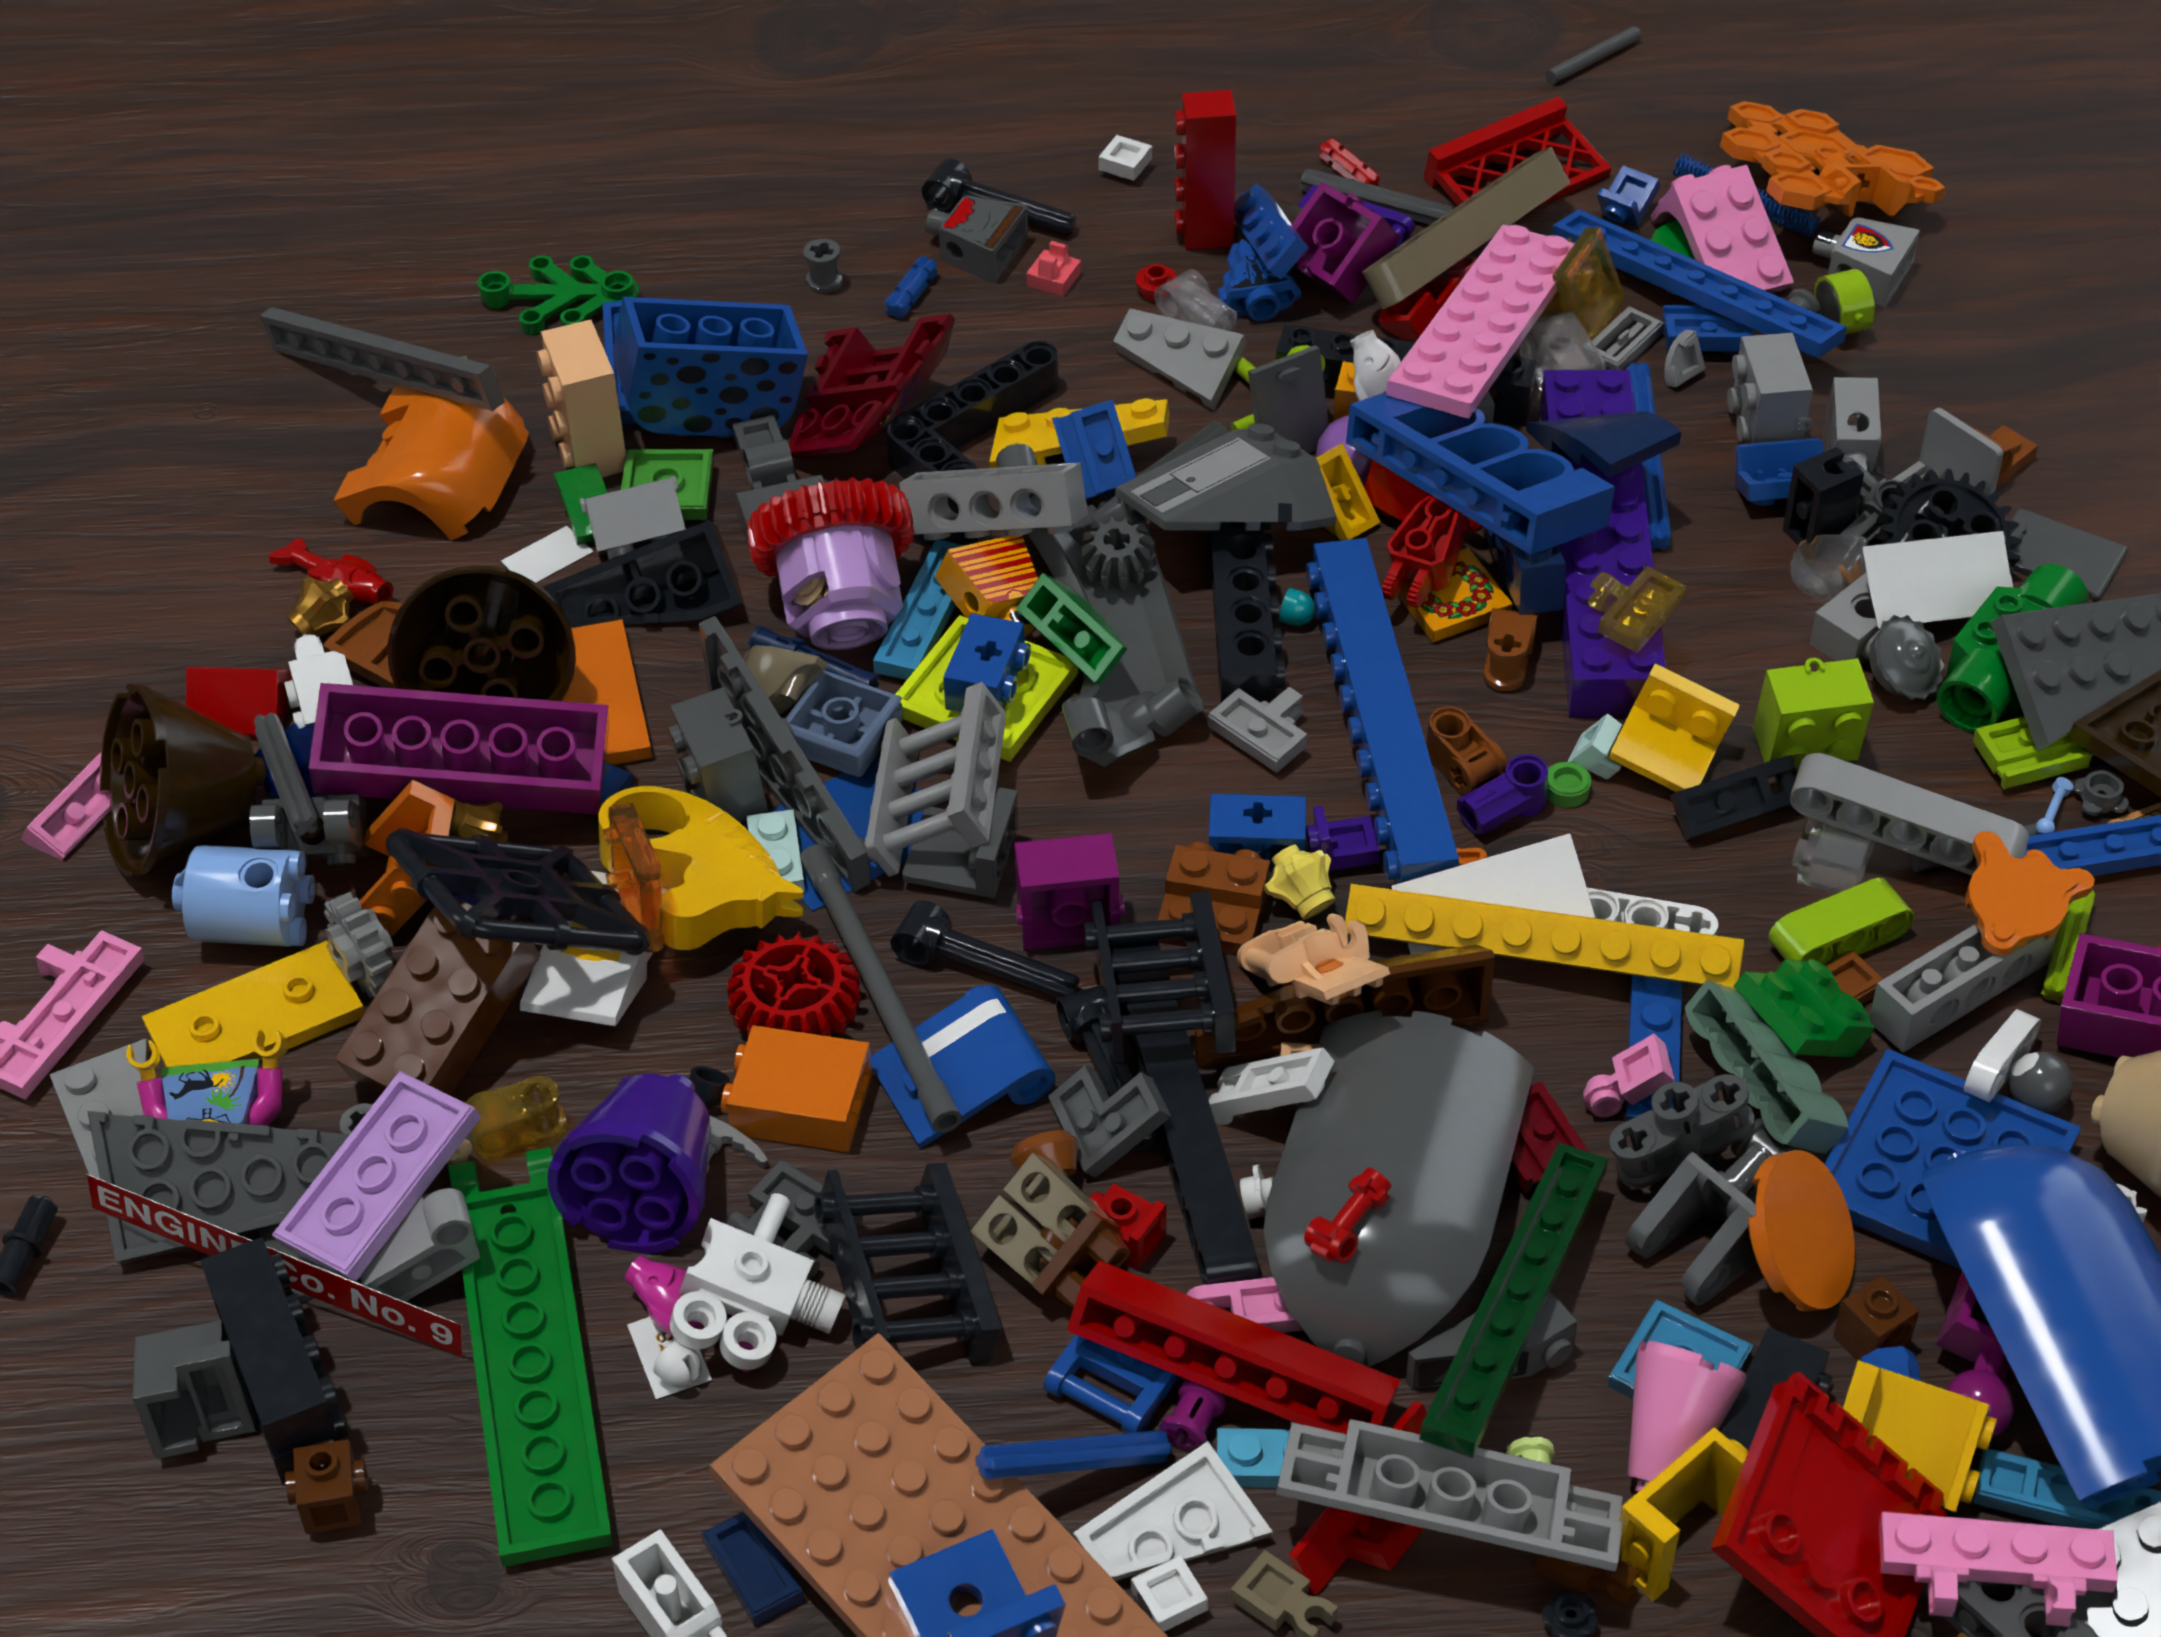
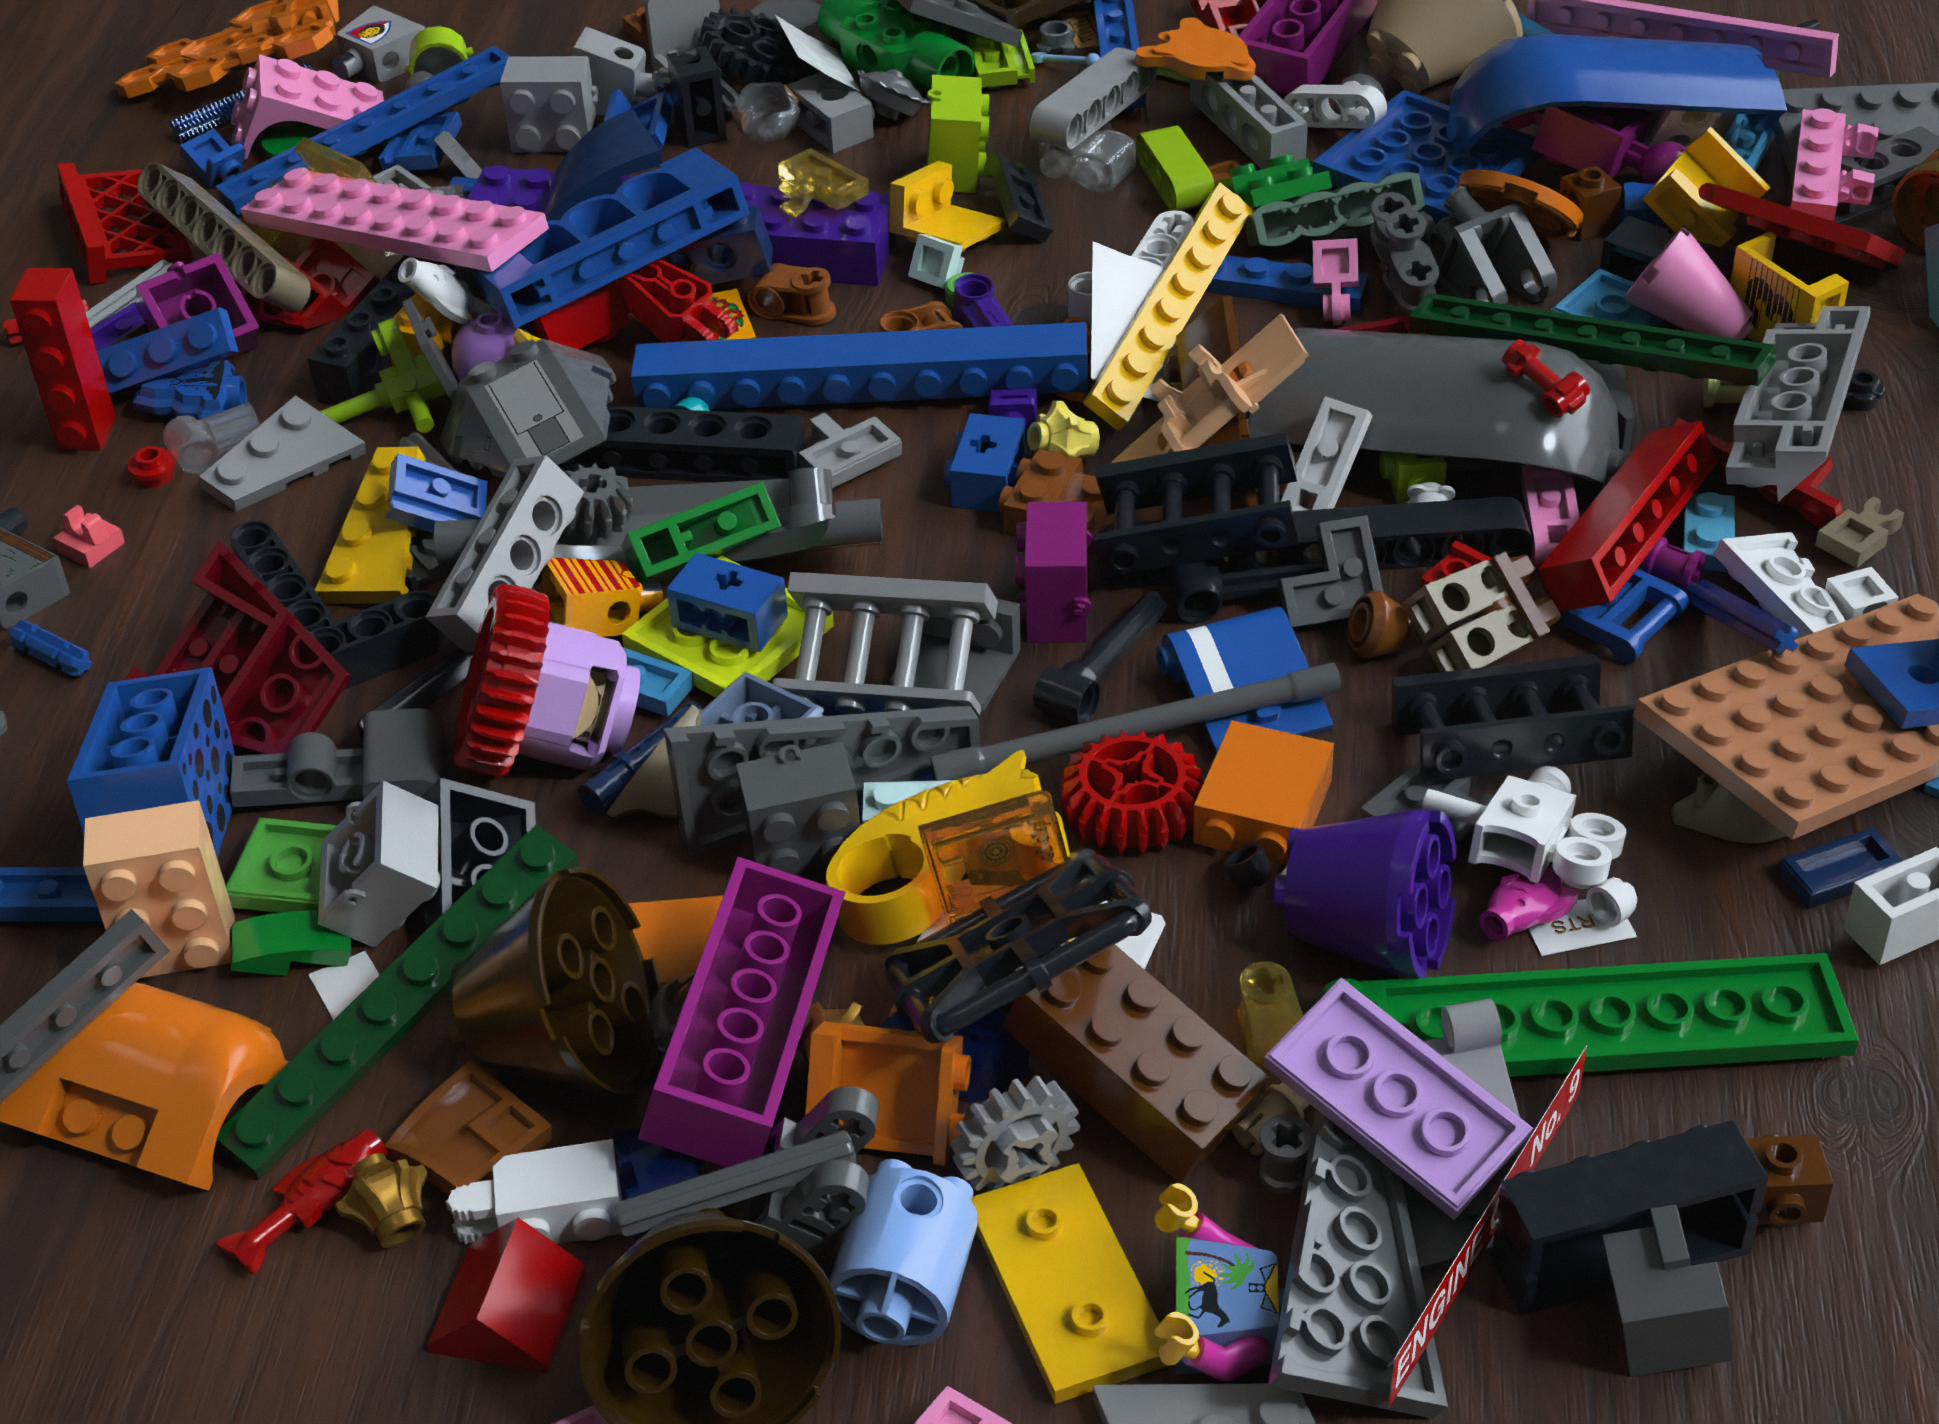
camera: 80 degrees left, 5 degrees down
(571, 584) = (386, 1008): none -> dark green plate

